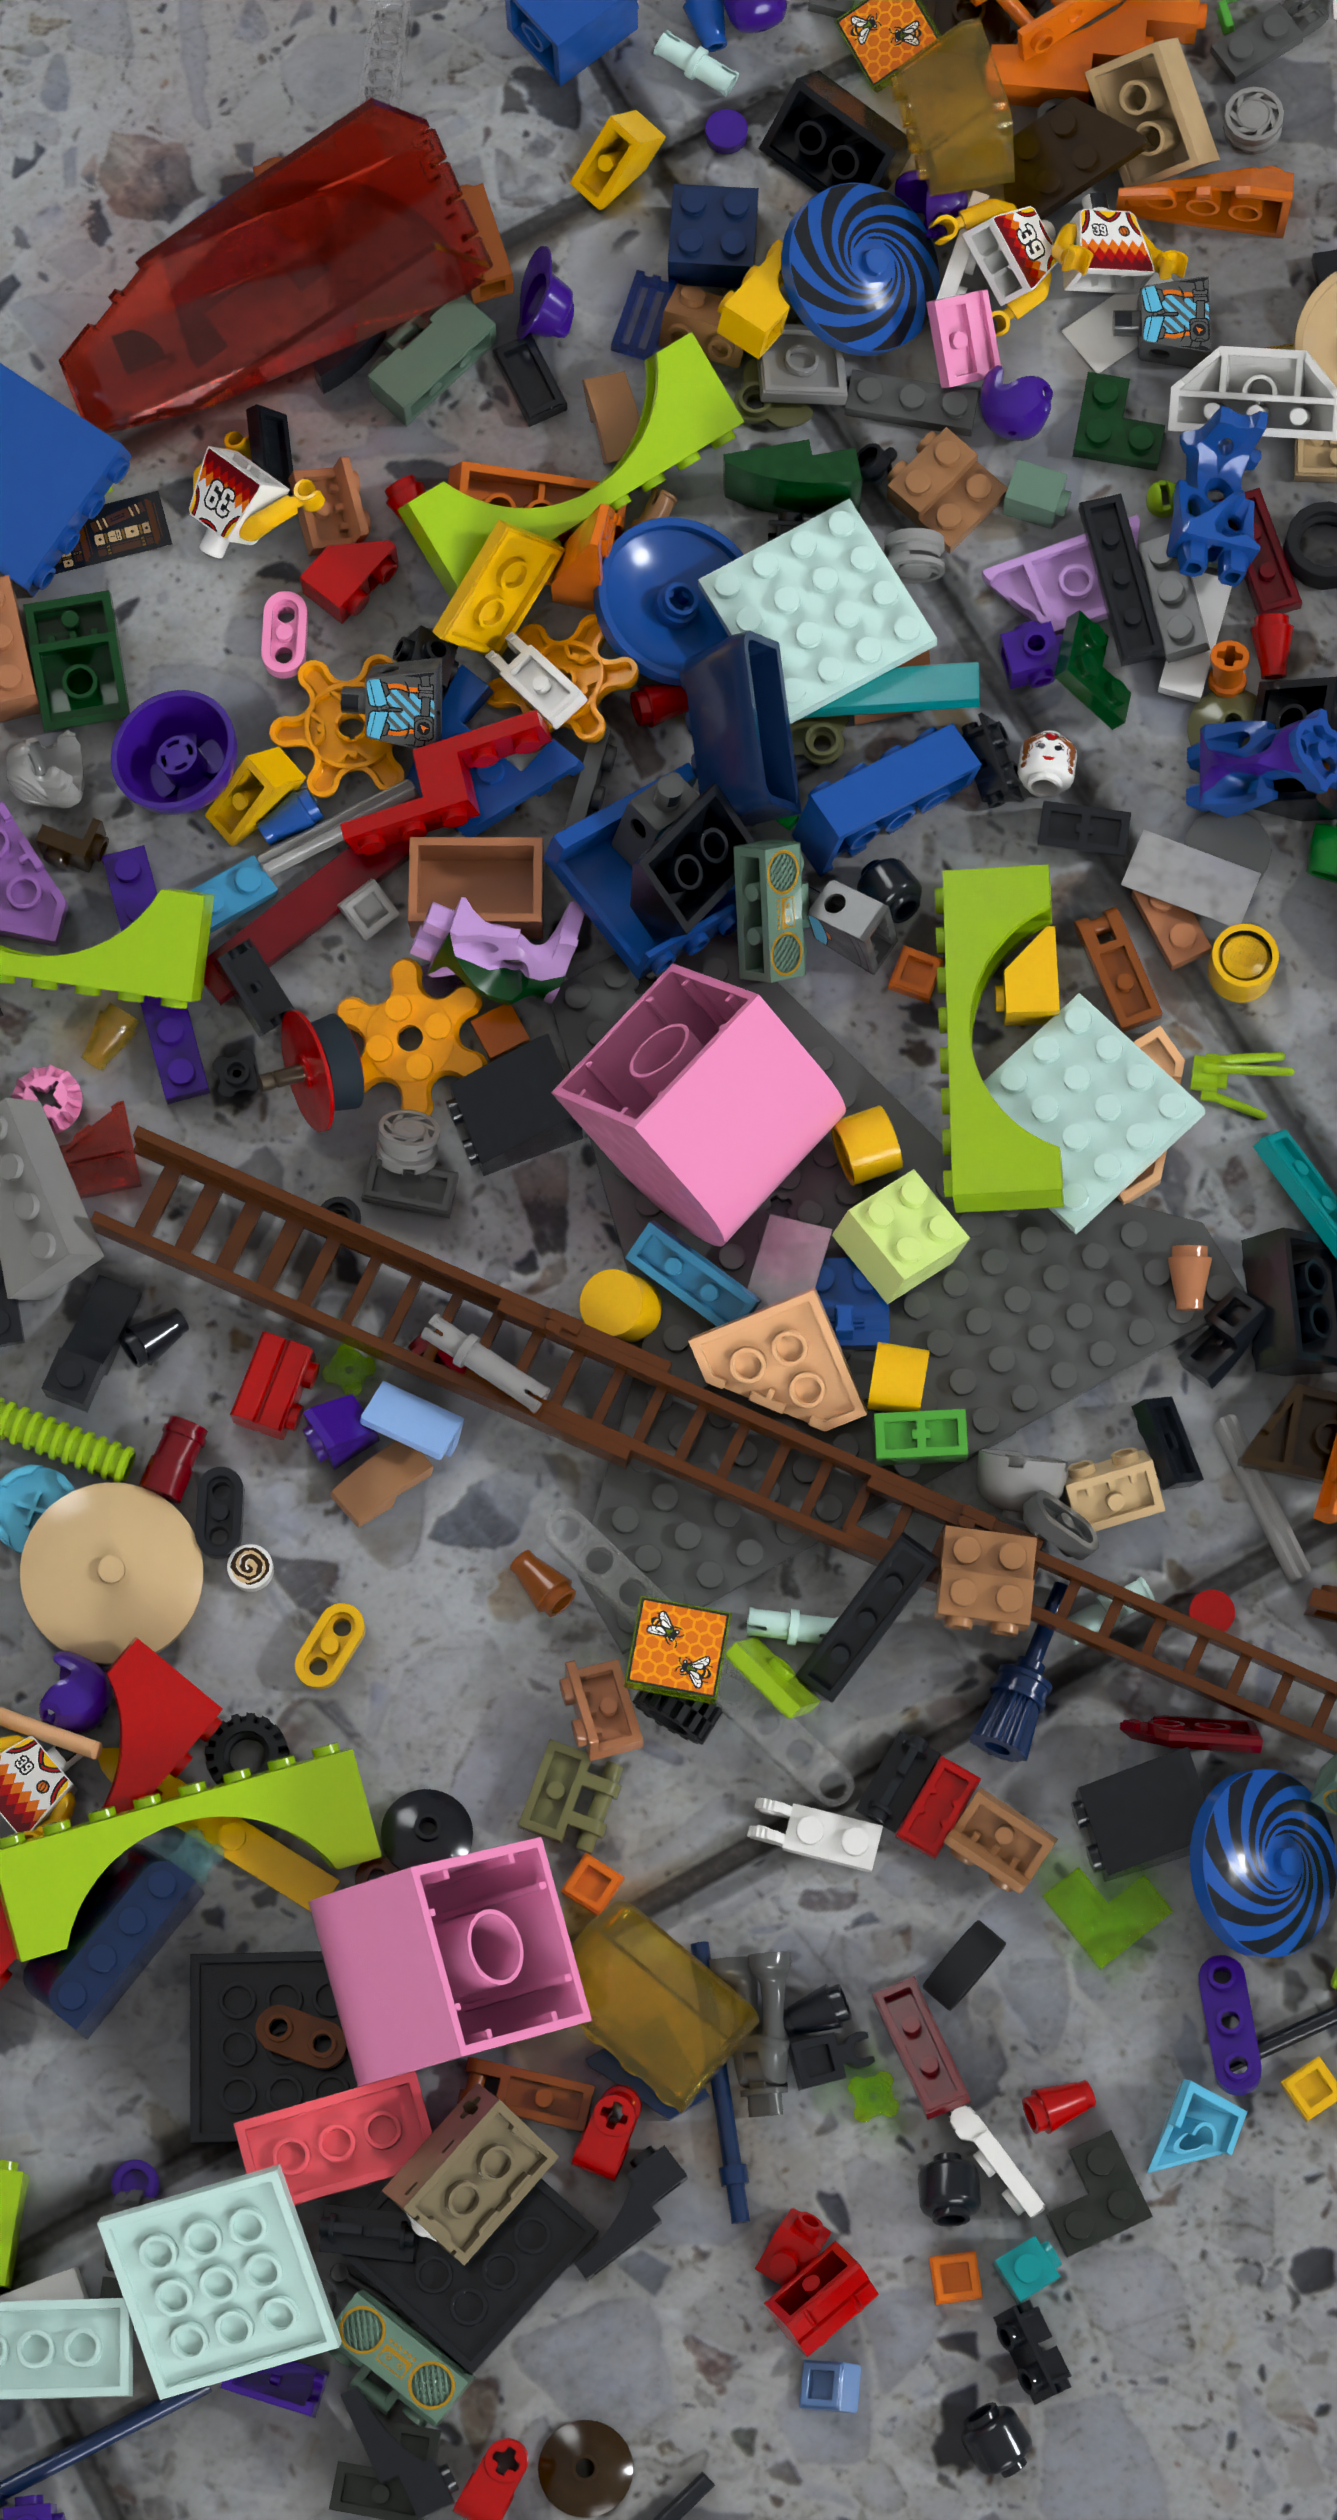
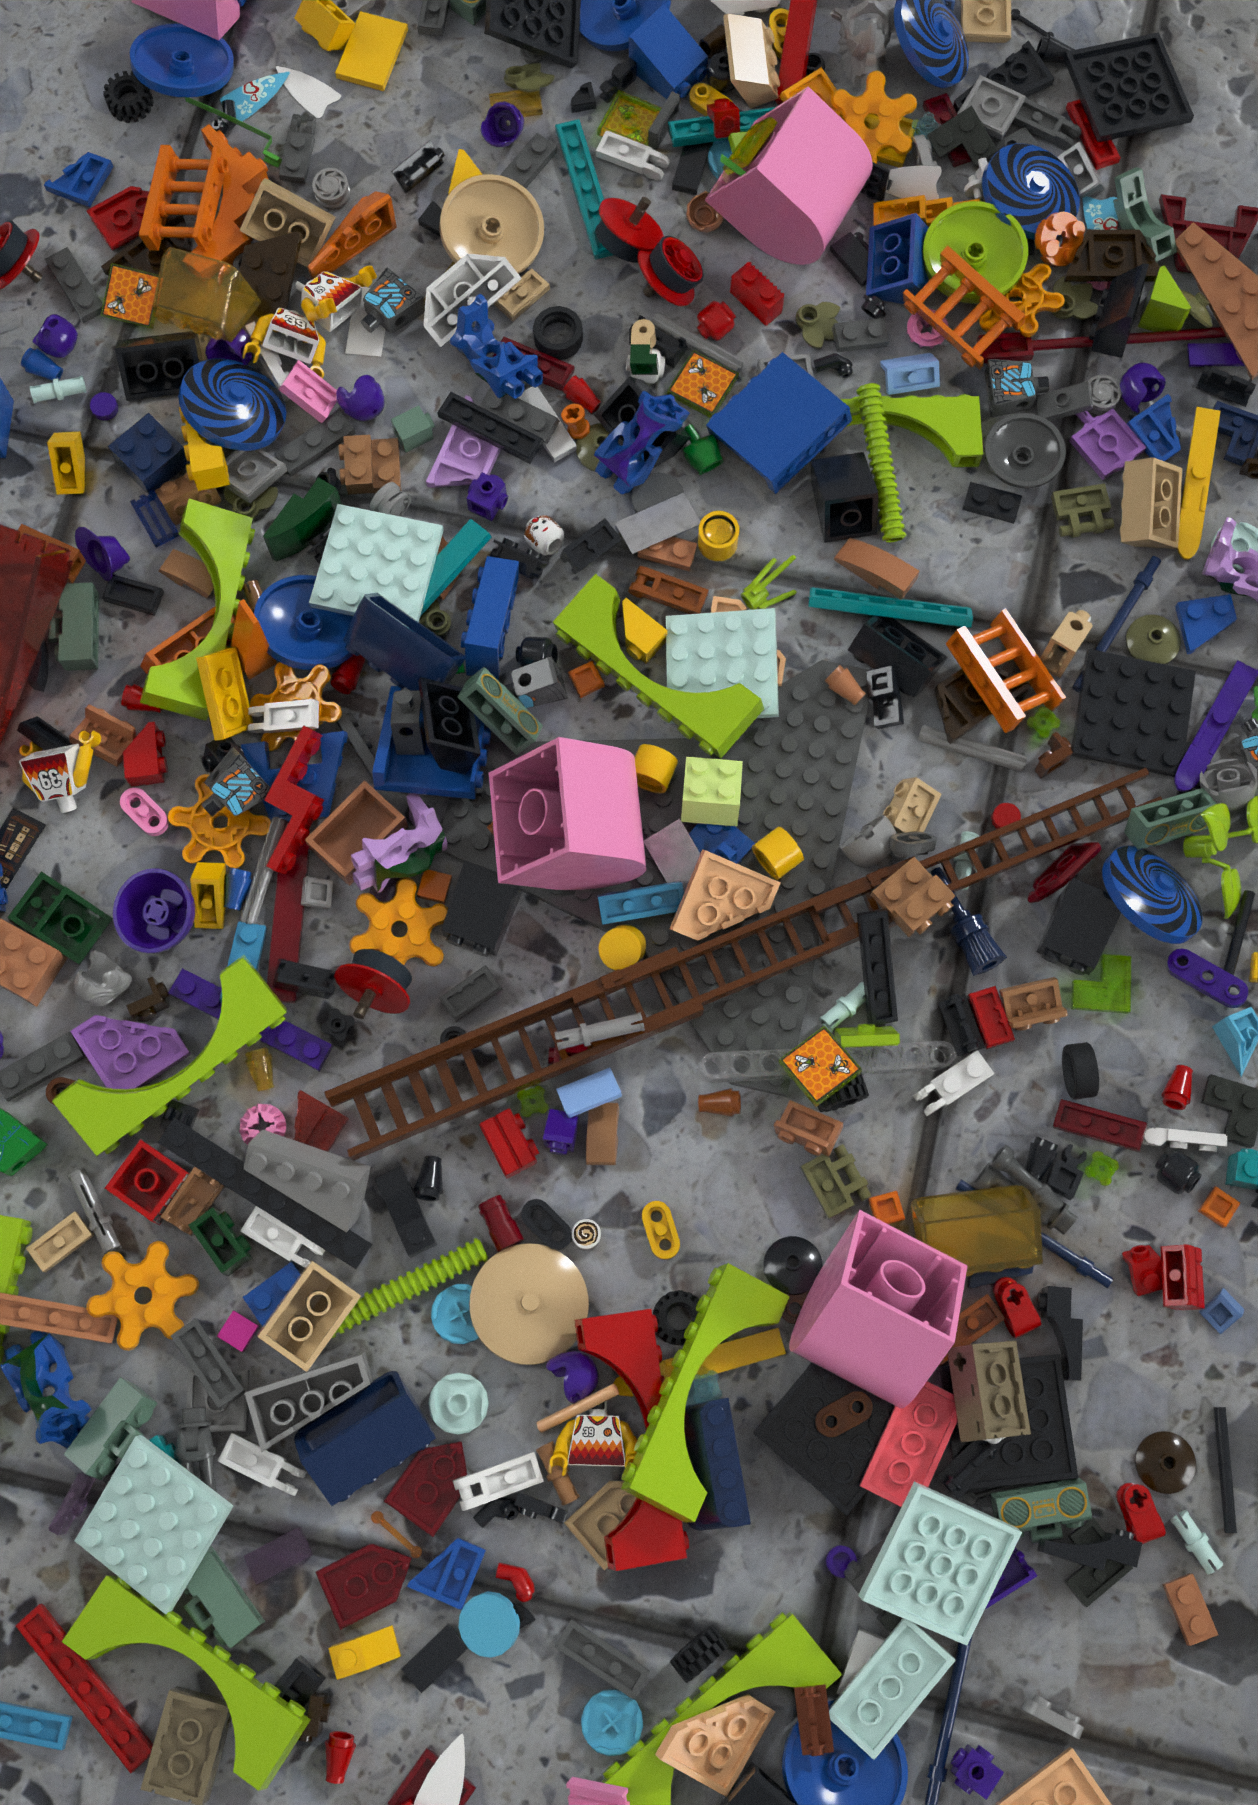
camera: 50 degrees left, 0 degrees up
(407, 1141) = (449, 974): light grey wheel -> none
(920, 1437) = (814, 867): bright green hinge -> none
(1083, 673) = (519, 480): dark green plate -> none
(1107, 435) = (413, 376): dark green plate -> none
(1154, 499) = (464, 382): lime hinge -> none
(1167, 1443) = (903, 762): black plate -> none

